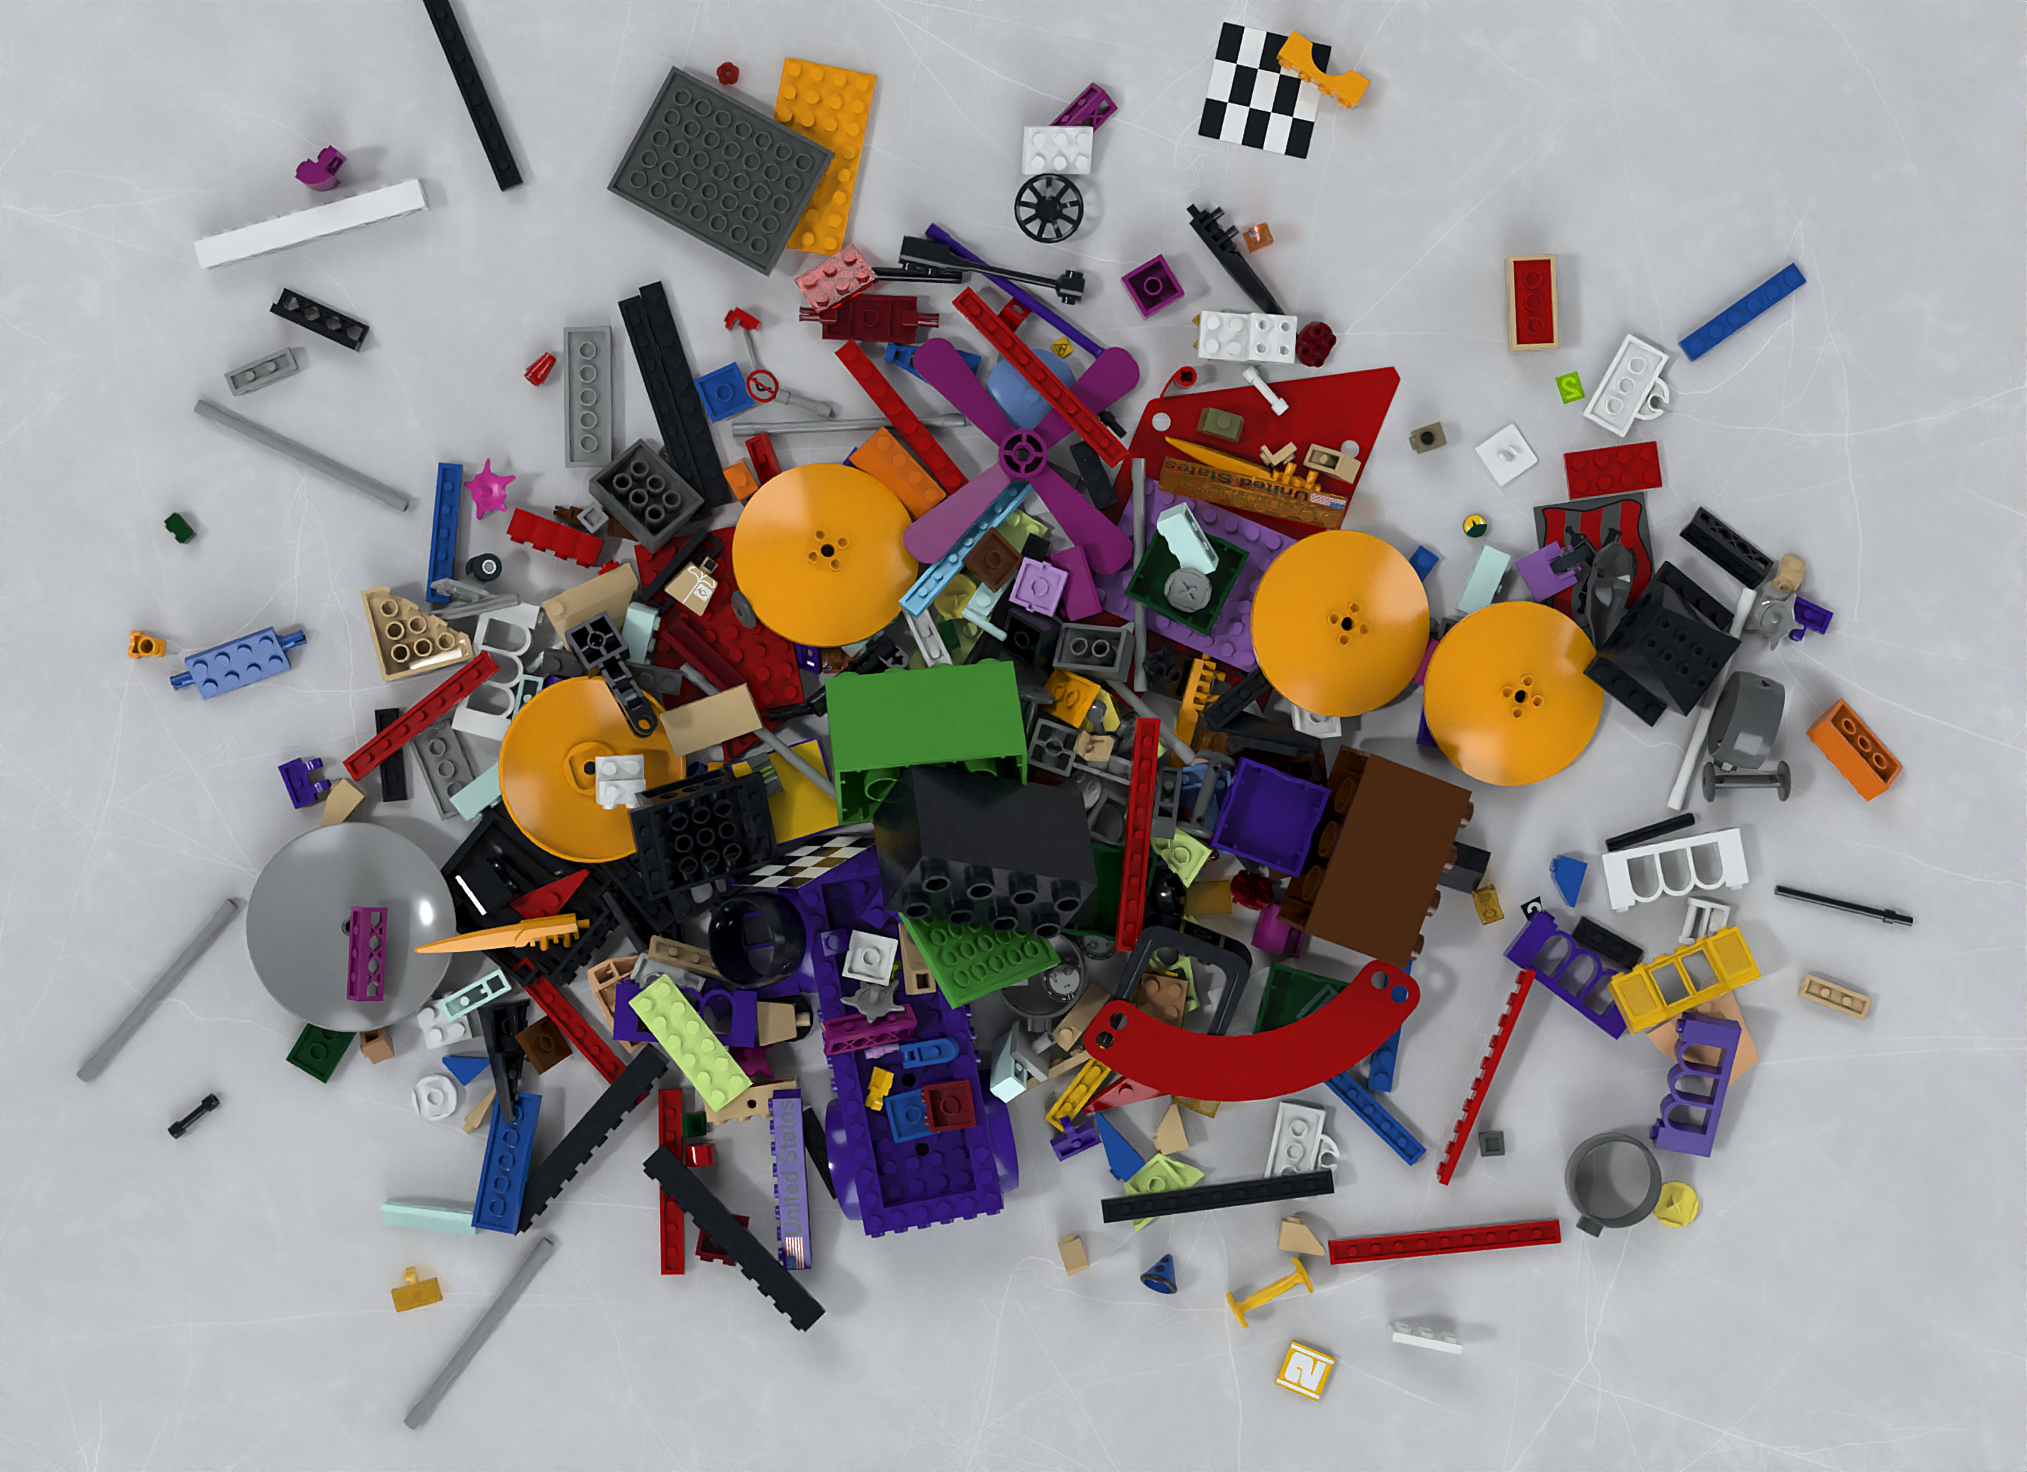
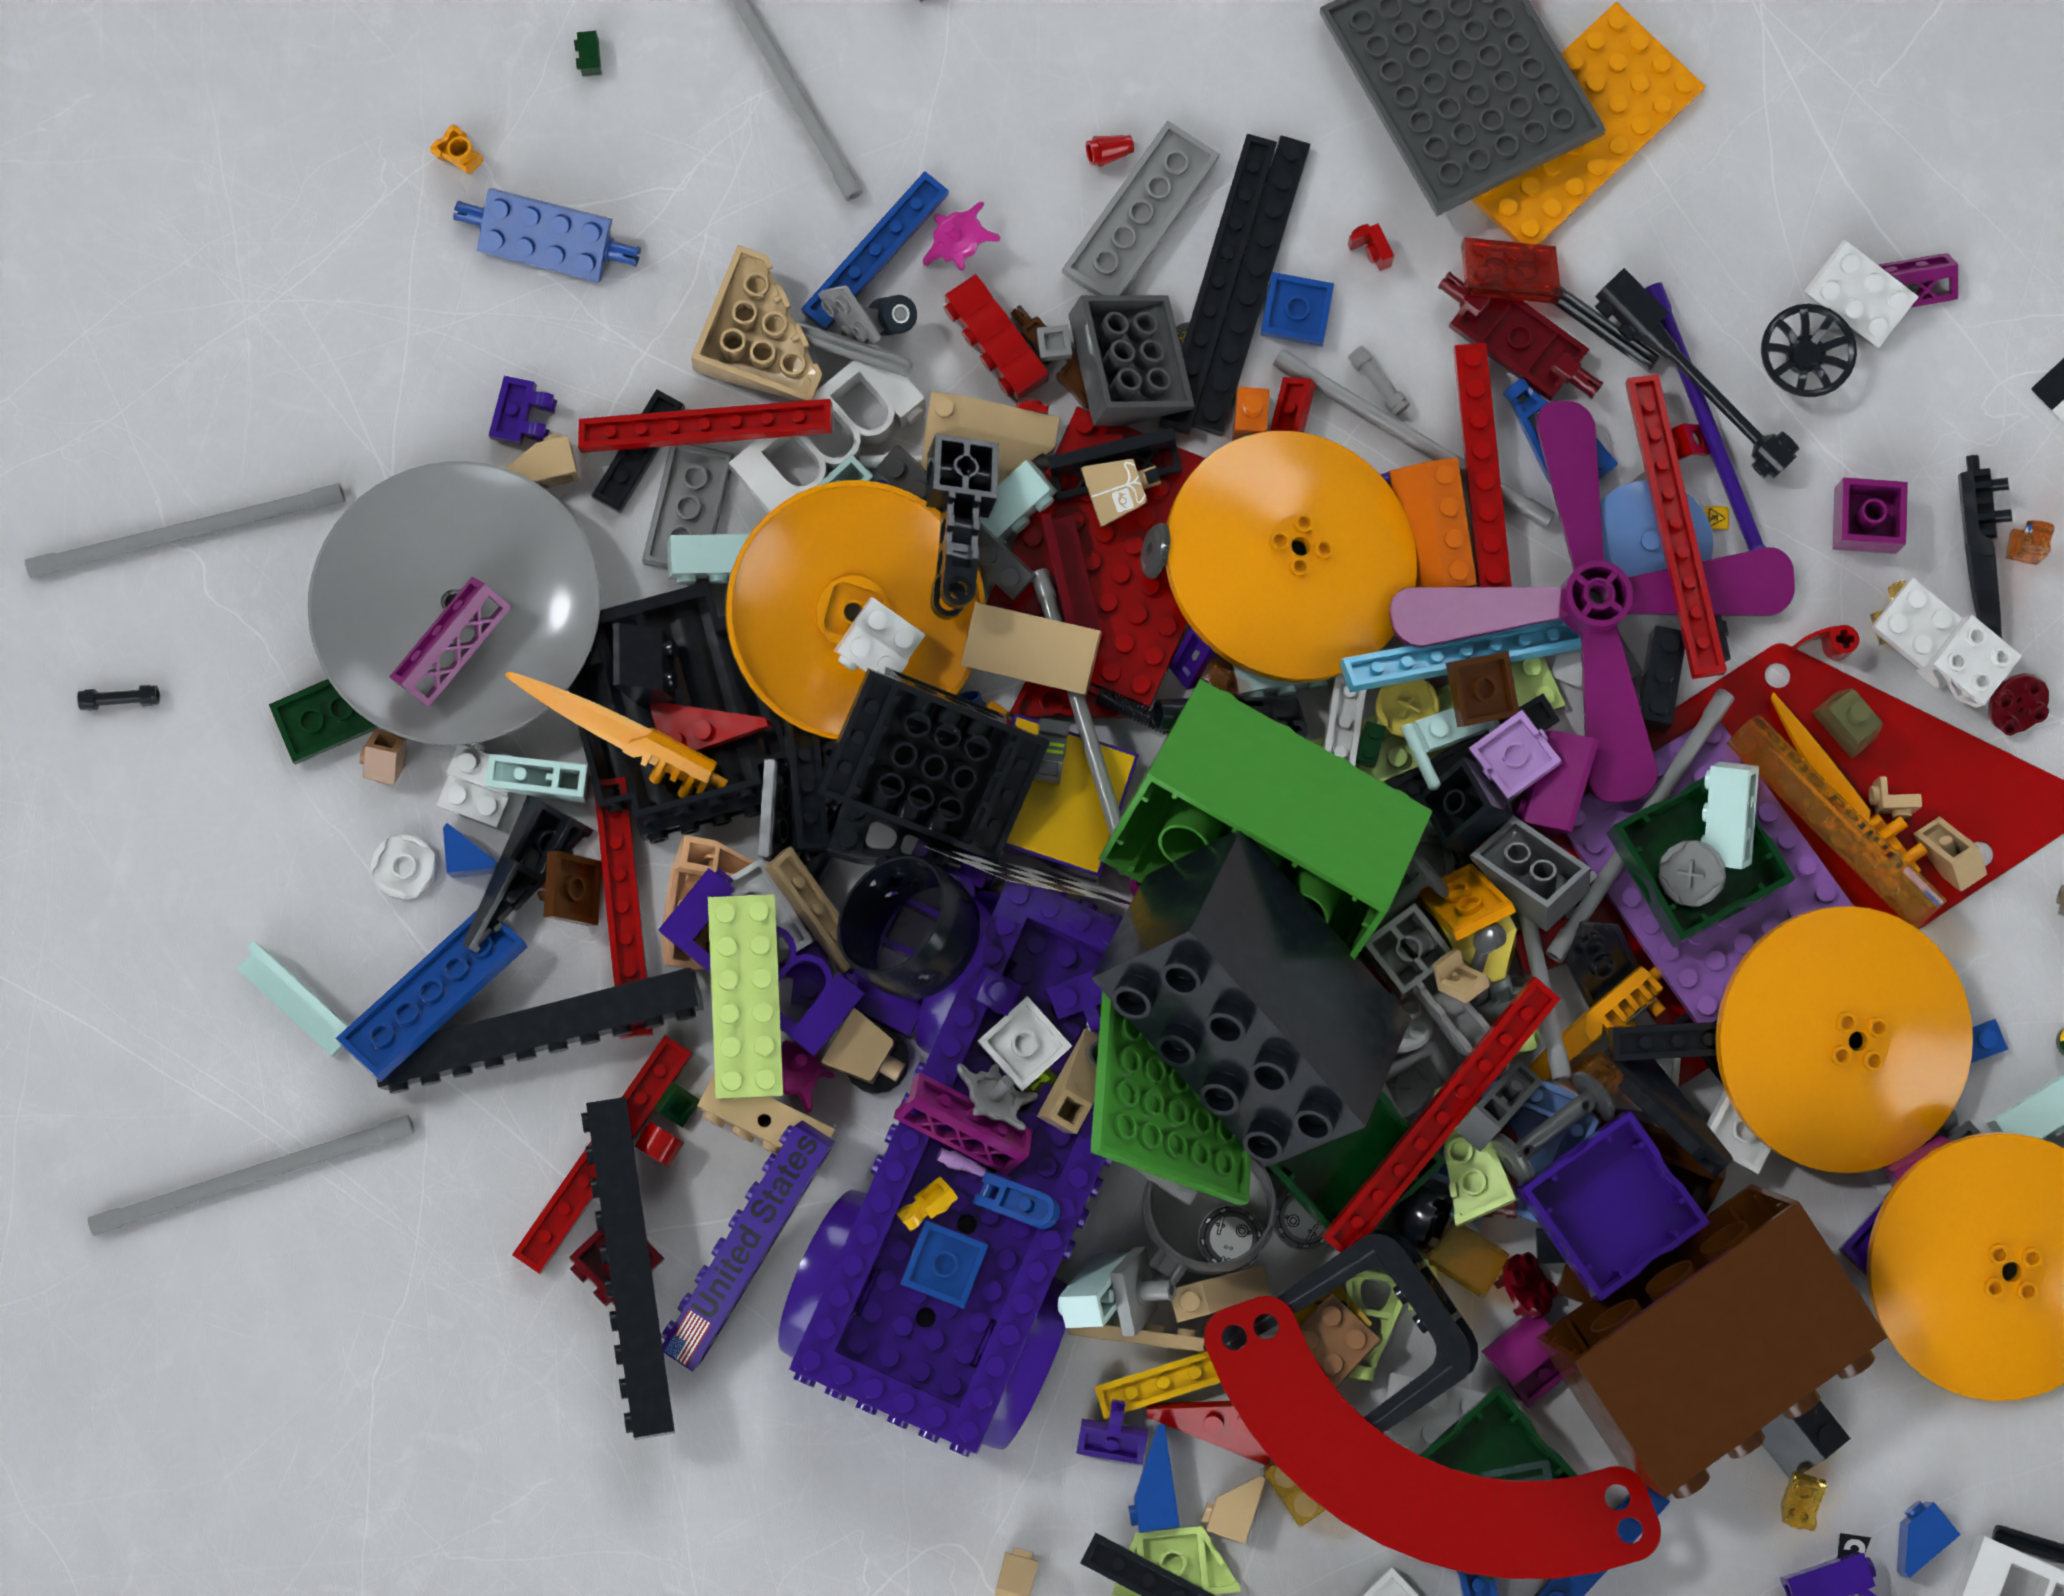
camera: 35 degrees right, 10 degrees down
(416, 1292) = (215, 1077): clear yellow plate -> none
(475, 1118) = (435, 920): tan piece -> none
(760, 384) = (1343, 326): piece -> none
(816, 1146) = (800, 1231): black tile -> none
(949, 1105) = (998, 1280): dark red plate -> none
(1278, 405) = (1929, 746): white bar -> none

